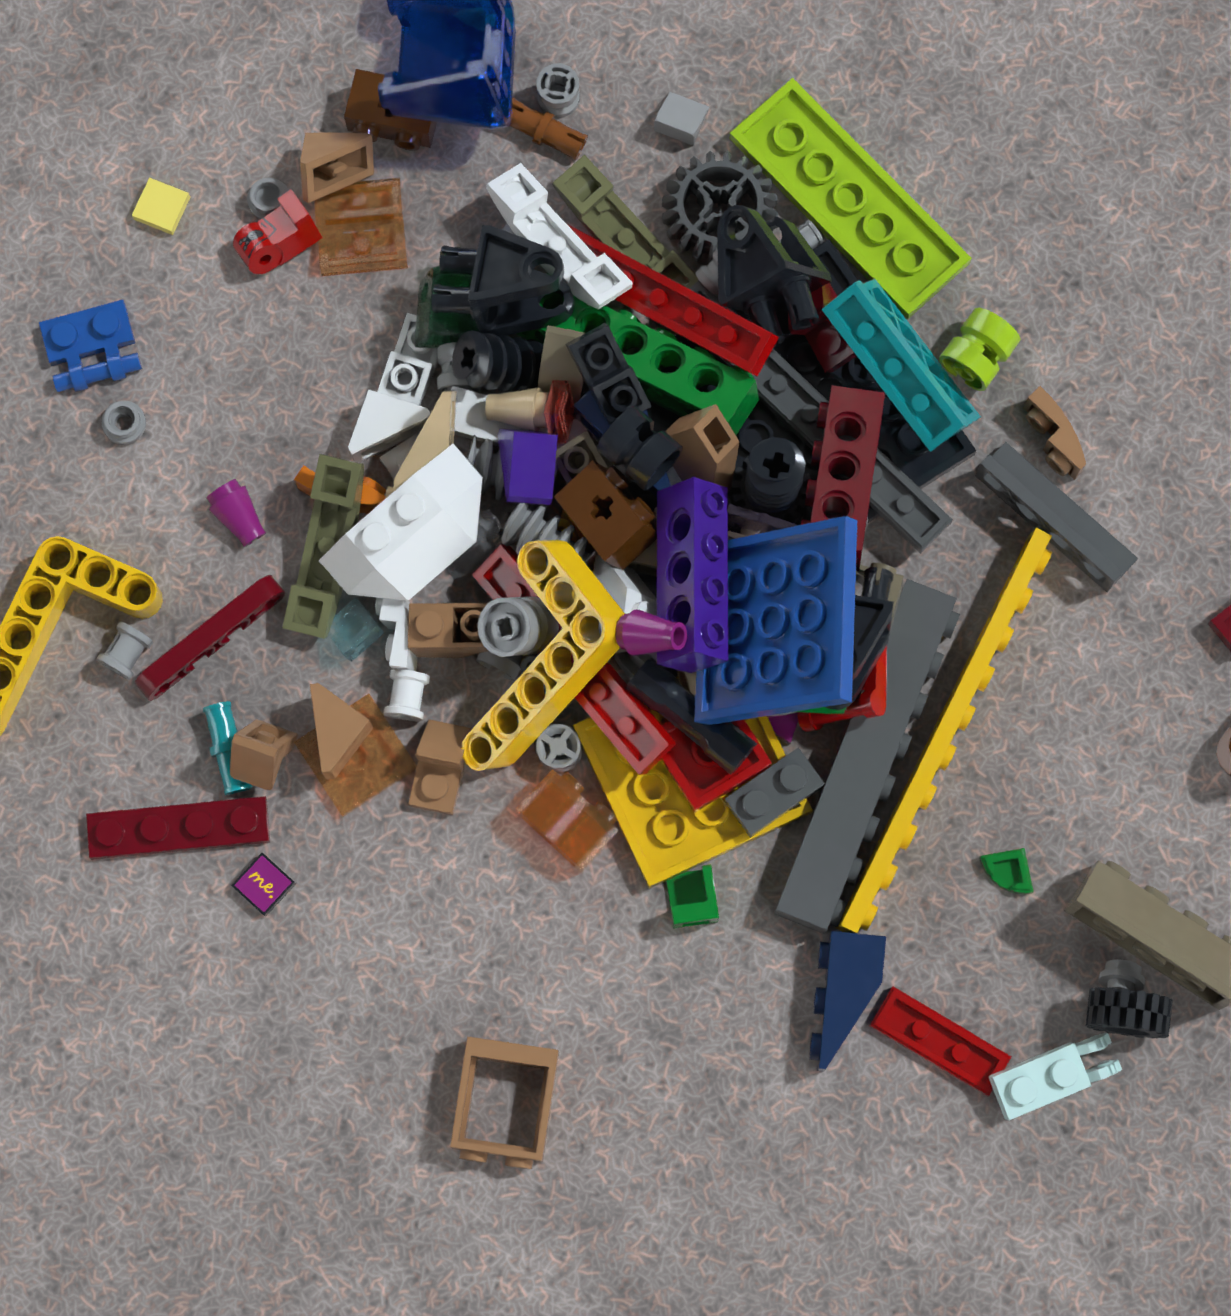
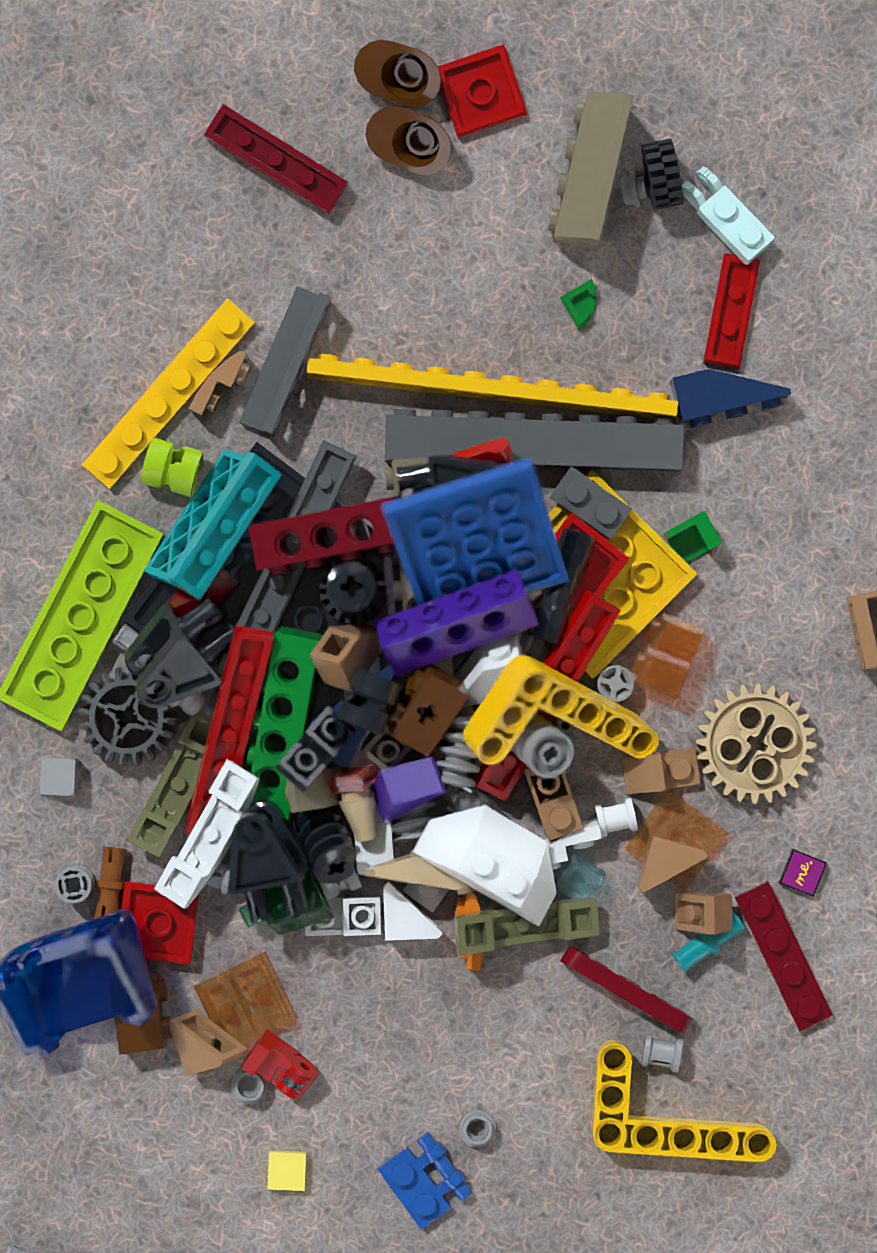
camera: 110 degrees left, 10 degrees up
(235, 510) = (518, 1008): magenta cone -> none
(398, 907) = (784, 761): none -> tan gear
(475, 158) = (163, 925): none -> red plate
(647, 633) = (520, 638): magenta cone -> none
(1064, 378) = (168, 393): none -> yellow plate

